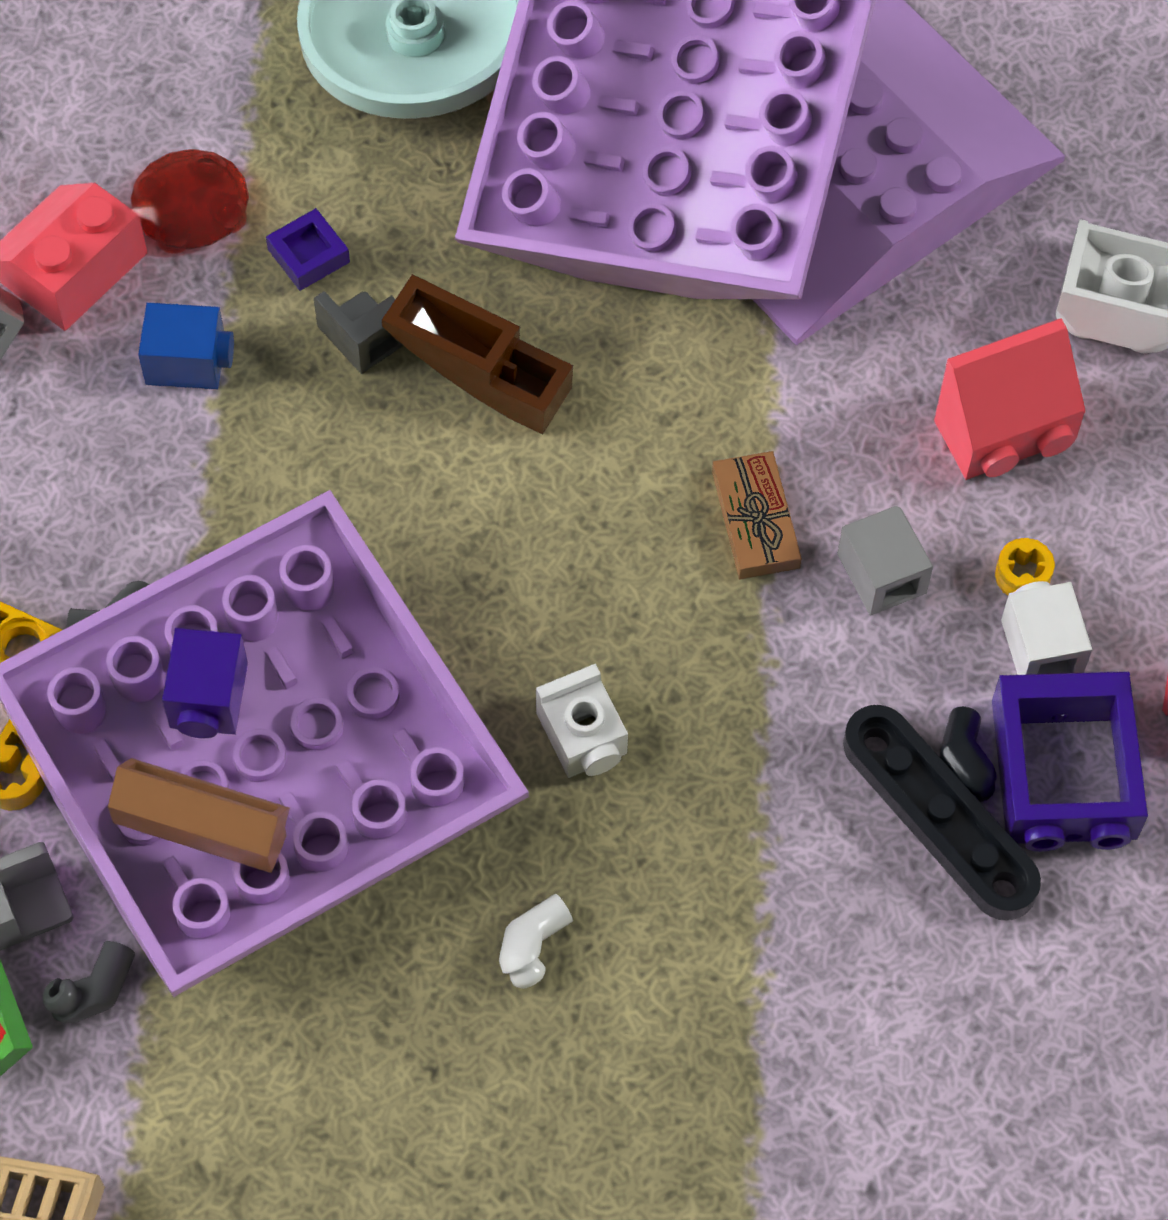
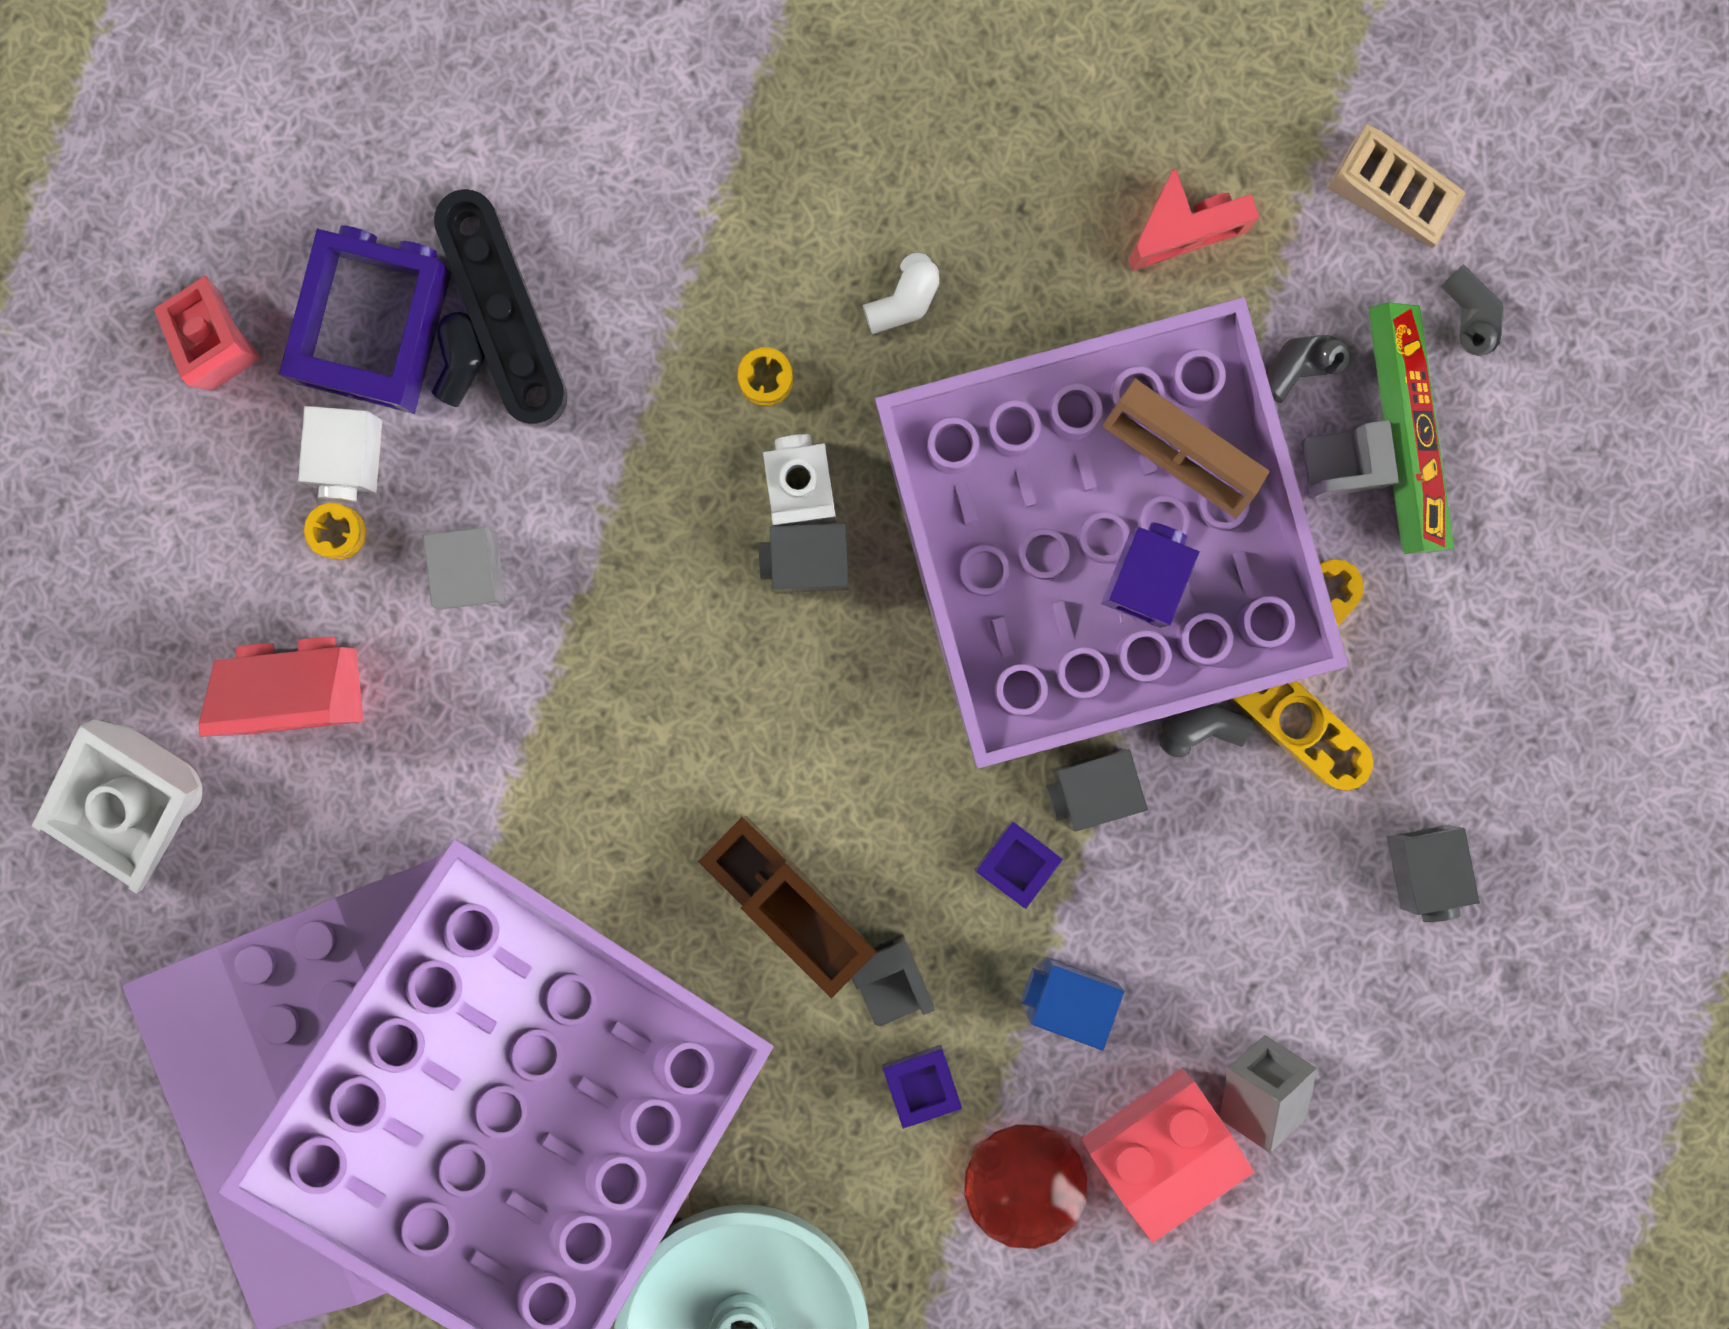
camera: 165 degrees left, 25 degrees up
(204, 519) = (1096, 790): none -> dark grey brick
(260, 1073) = (1176, 231): none -> coral slope
(267, 449) = (1018, 864): none -> dark purple plate
(550, 650) = (805, 558): none -> dark grey brick
(649, 802) = (746, 375): none -> yellow bush
(756, 515) = (569, 663): medium nougat tile -> none

